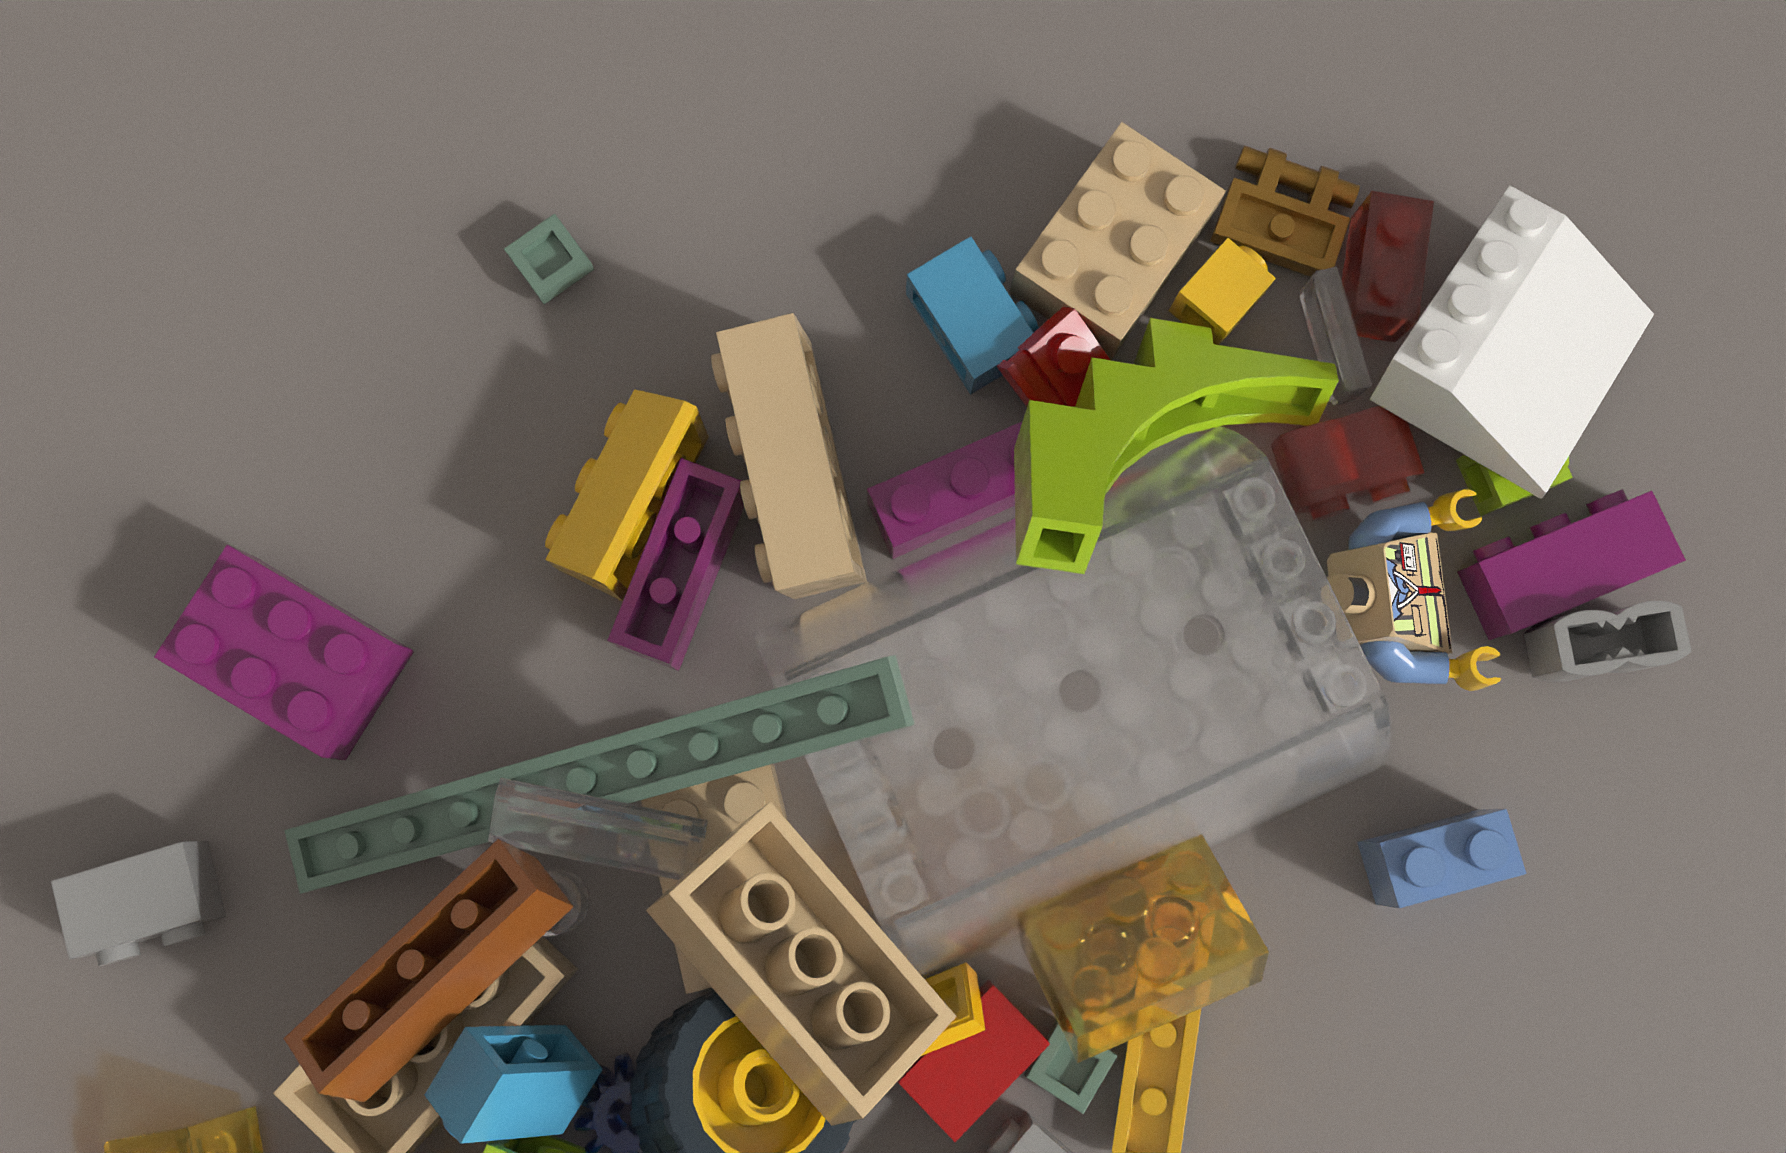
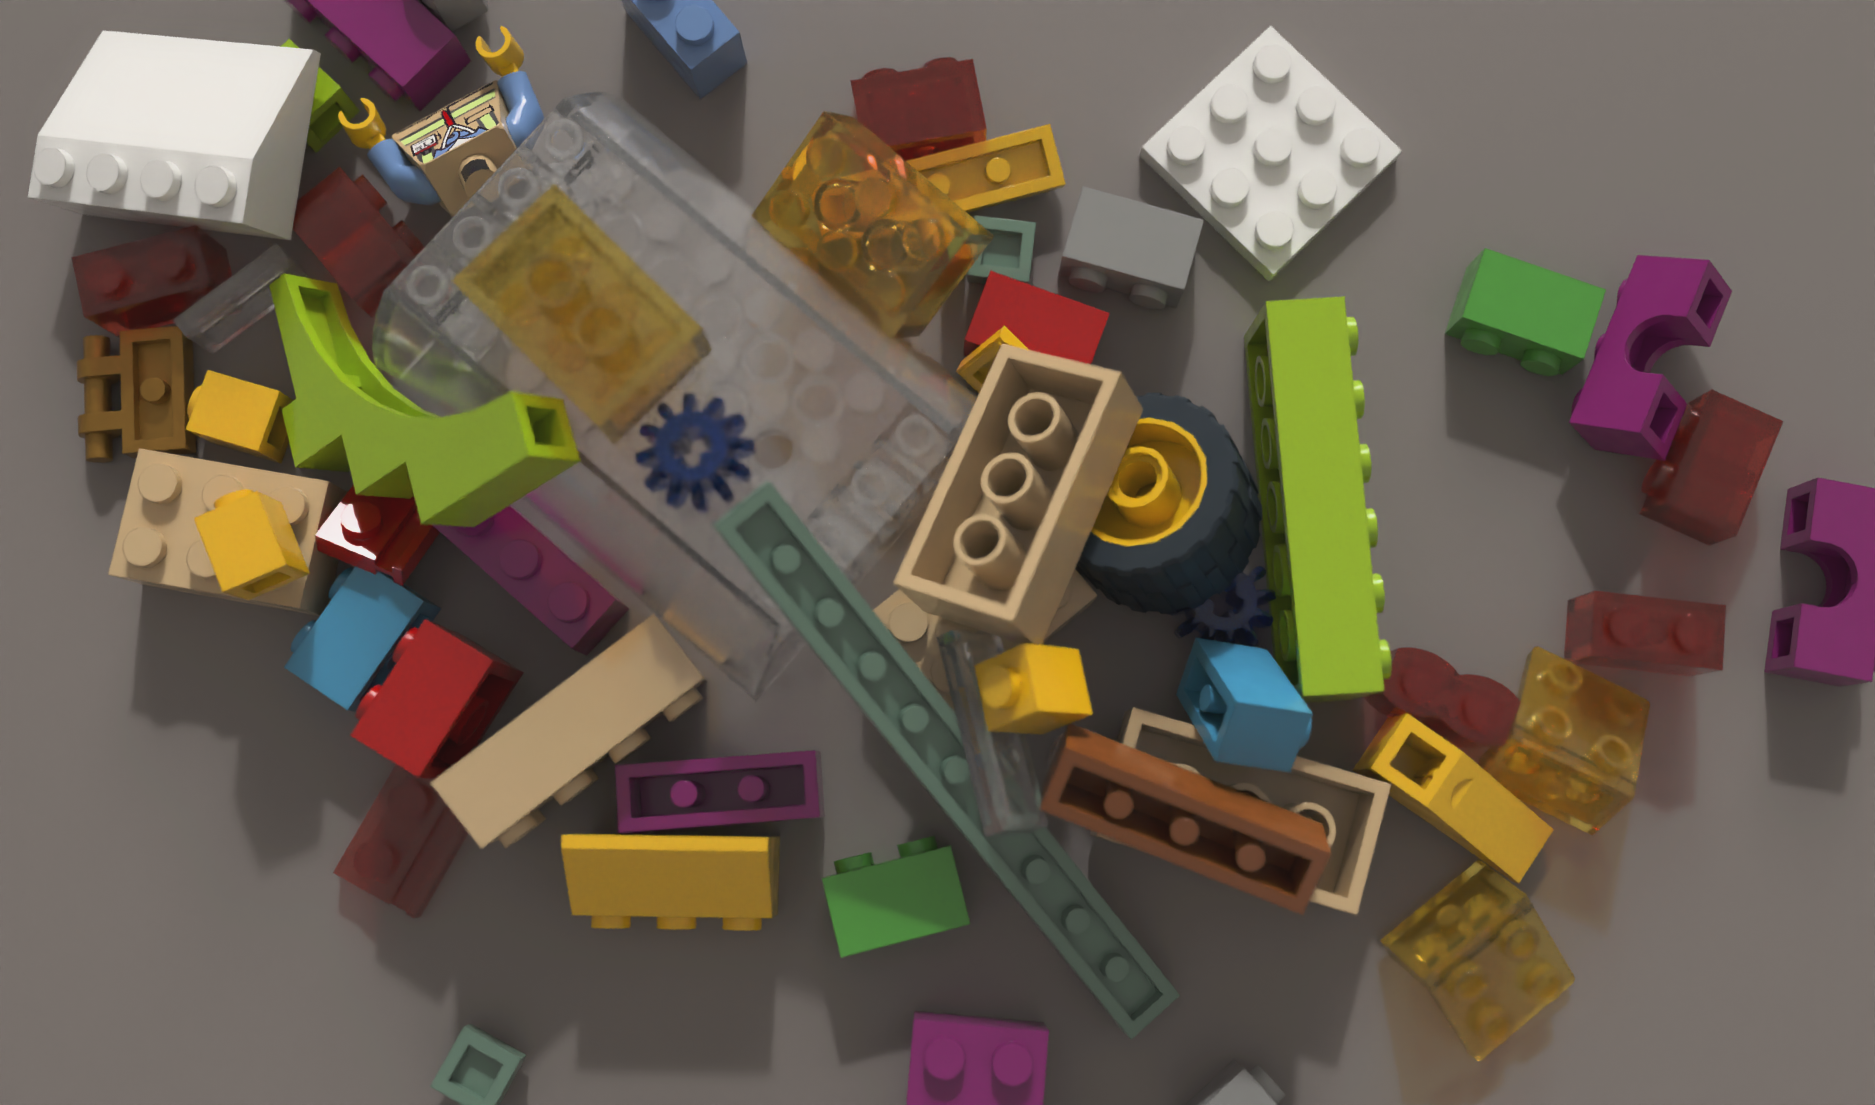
camera: 110 degrees left, 0 degrees up
(513, 677) = (894, 898): none -> bright green brick
(613, 886) = (1033, 689): none -> yellow brick
(776, 274) = (403, 844): none -> clear red plate
(877, 350) = (434, 701): none -> red brick
(996, 663) = (676, 440): none -> clear blue gear
(1086, 248) = (250, 544): none -> yellow brick
(1150, 624) = (584, 313): none -> clear yellow brick
(1247, 1055) = (922, 107): none -> clear red brick

